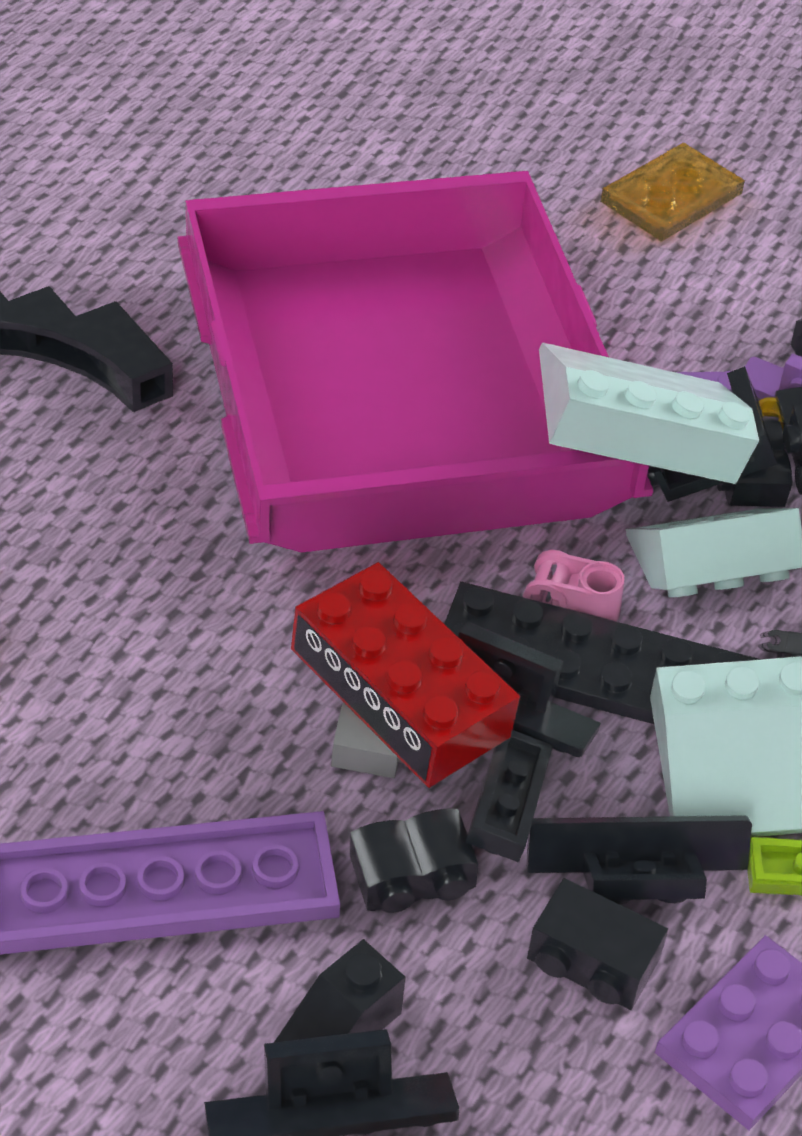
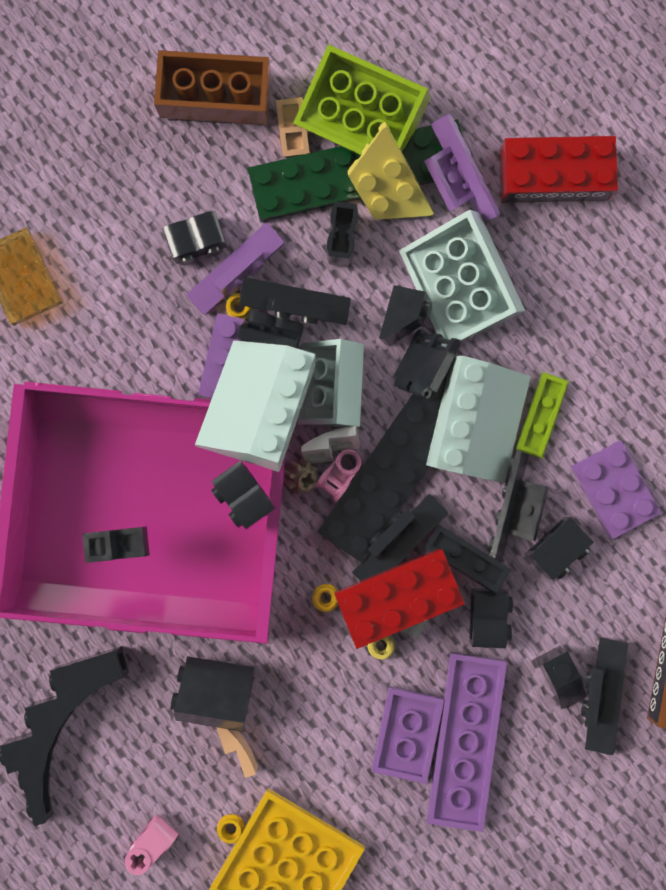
camera: 70 degrees left, 40 degrees up
(45, 559) = (234, 741): none -> light nougat slope
(141, 490) = (213, 693): none -> black brick
(143, 782) = (407, 734): none -> medium lavender plate
(300, 702) = (382, 653): none -> light yellow plate
(346, 298) = (116, 544): none -> black slope
(490, 412) = (243, 495): none -> black brick
(533, 525) = (300, 476): none -> dark tan gear
(604, 542) = (322, 447): none -> white slope

